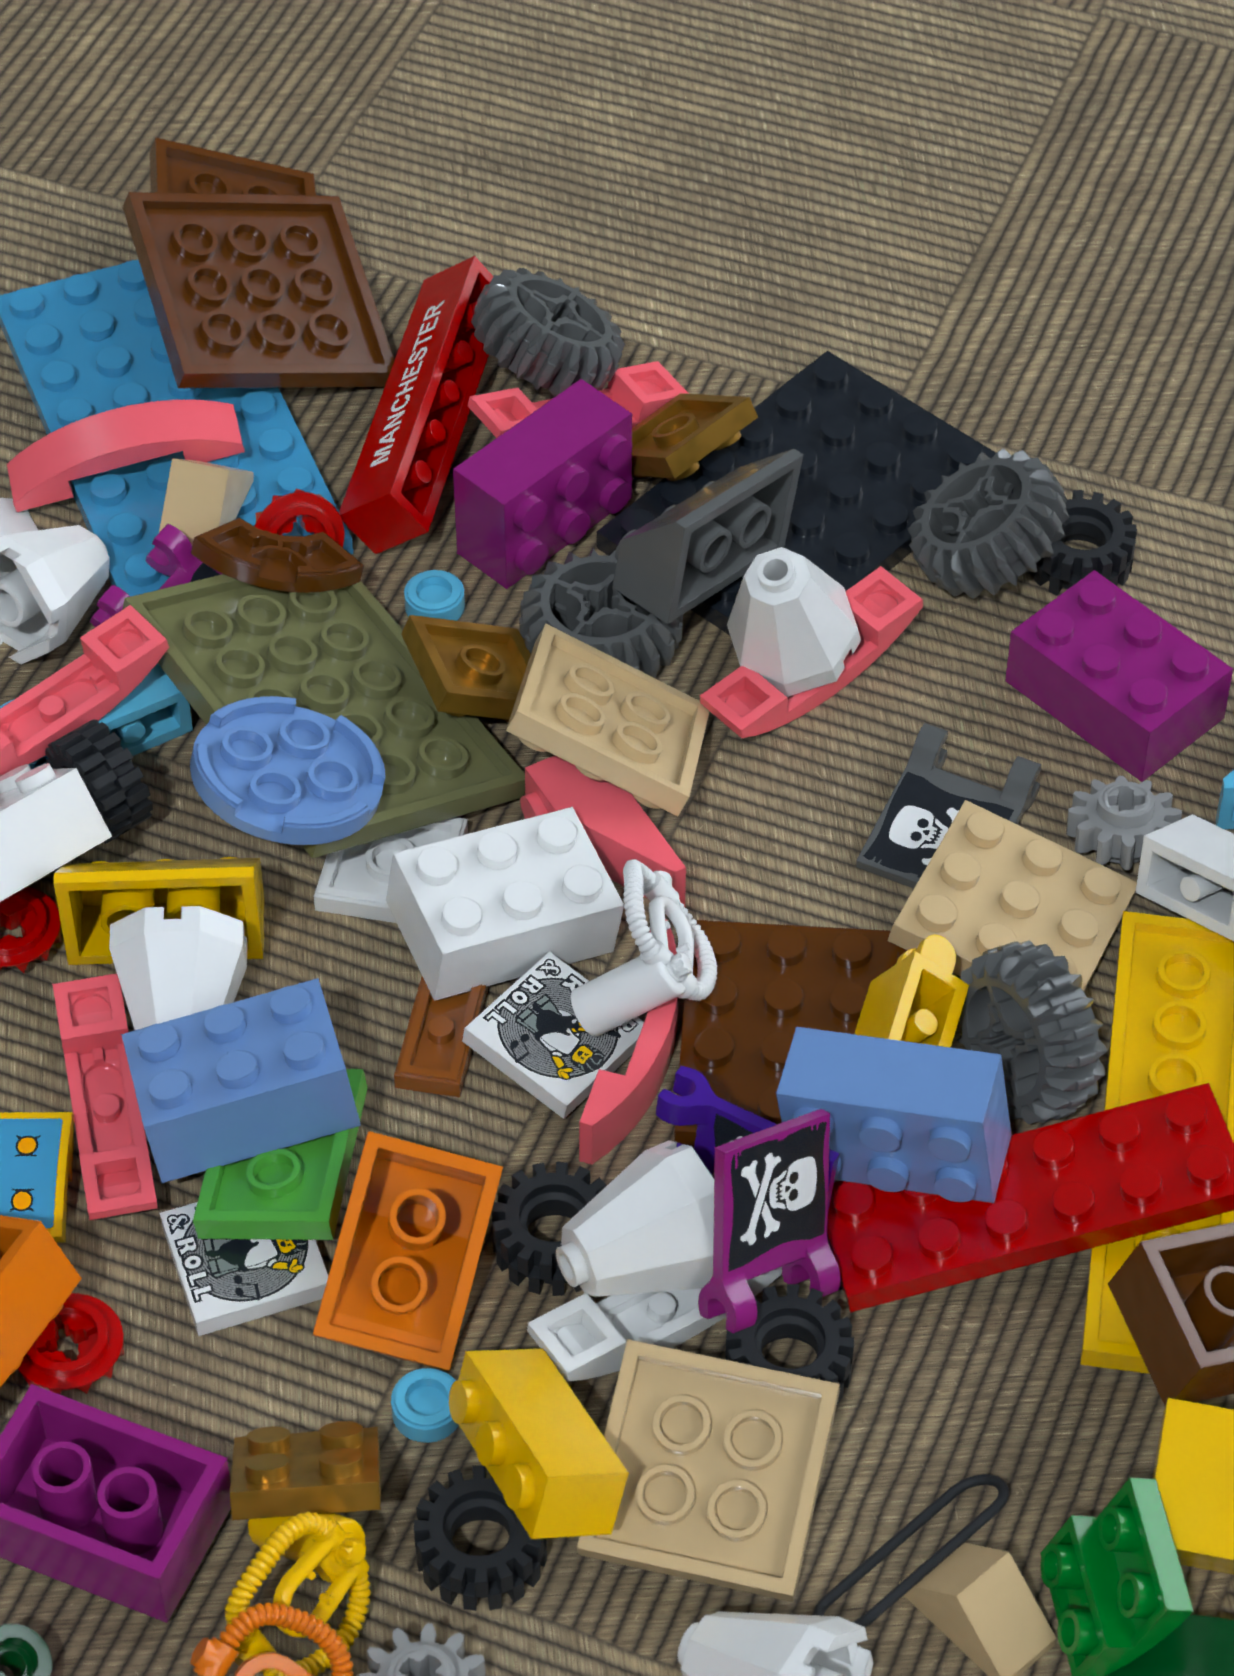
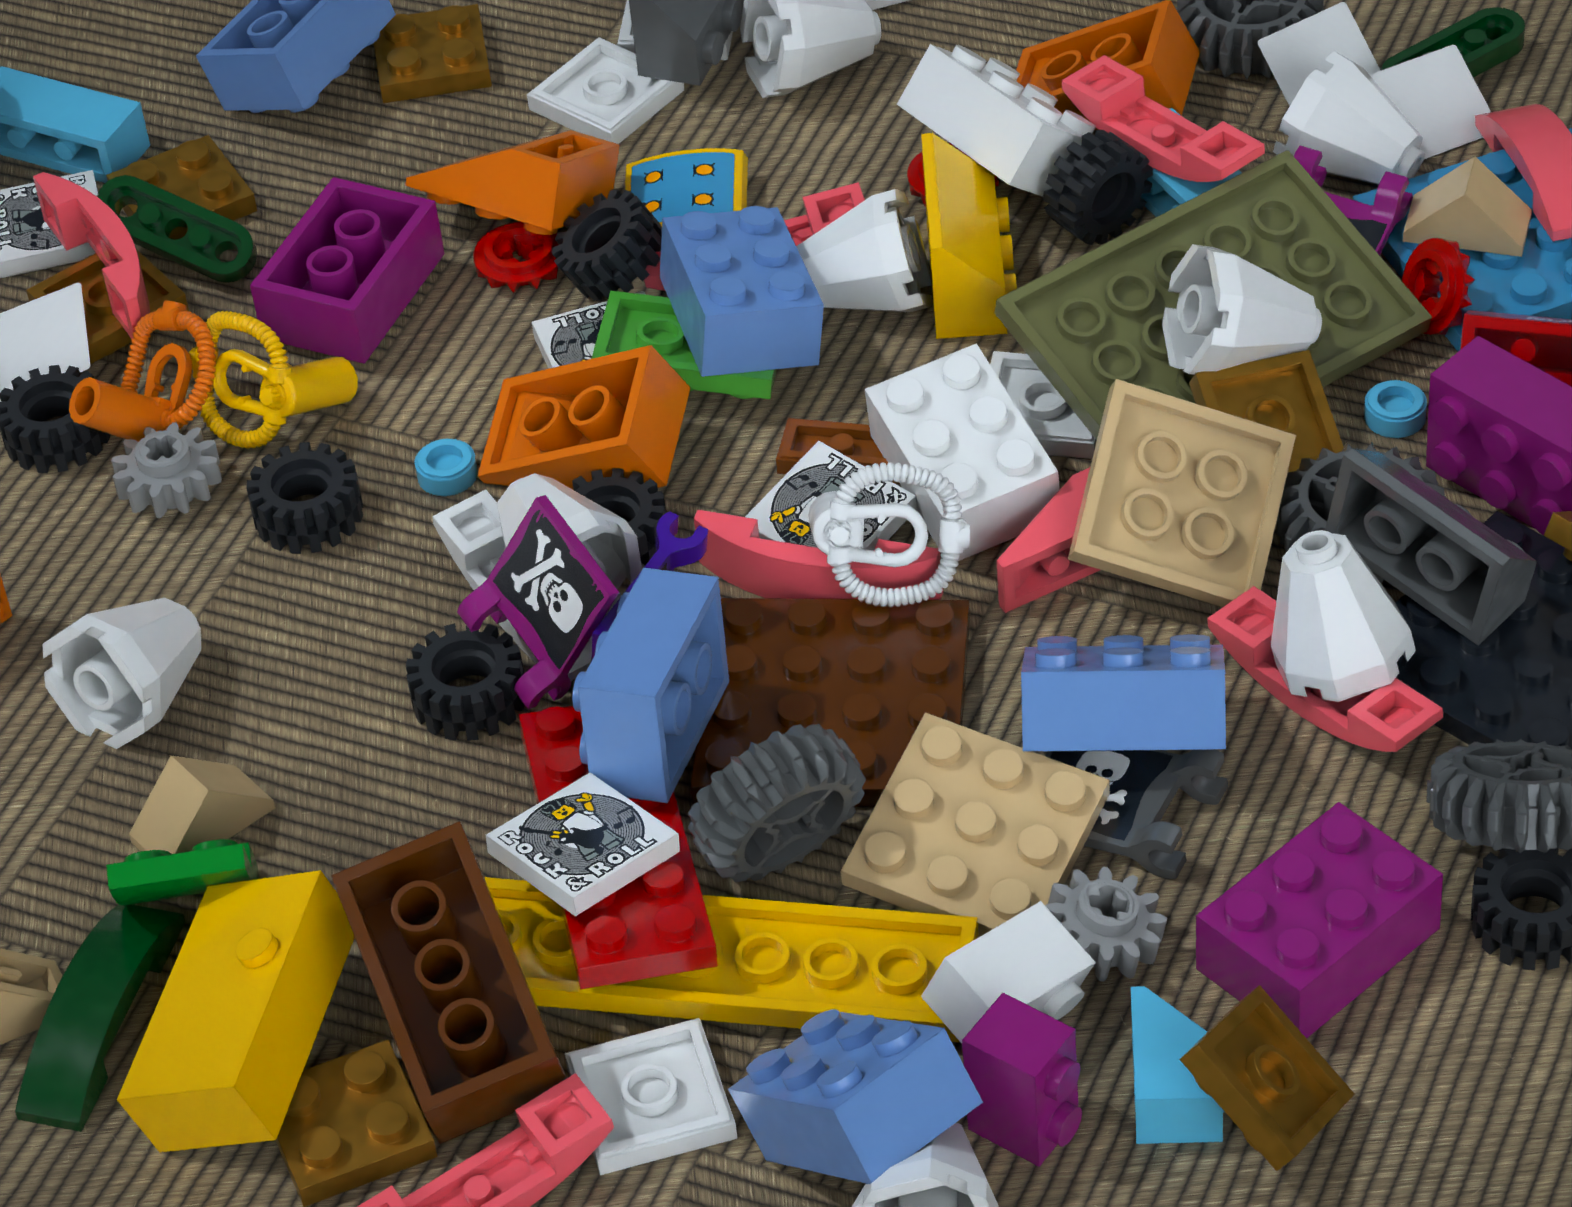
camera: 95 degrees right, 5 degrees down
(116, 1184) = (608, 244): none -> black tyre
(277, 560) = (1381, 263): reddish brown tile -> none
(287, 771) = (1075, 270): medium blue tile -> none
(305, 1471) = (362, 379): pearl gold plate -> none
(383, 660) = (1233, 313): none -> white cone
(538, 1443) = (355, 492): yellow brick -> none
(716, 1468) = (337, 618): tan plate -> none
(871, 779) = (1123, 695): none -> medium blue brick
(905, 1533) = (248, 781): black piece -> none
(916, 997) = (753, 700): yellow brick -> none
(1093, 1187) = (582, 843): none -> tile

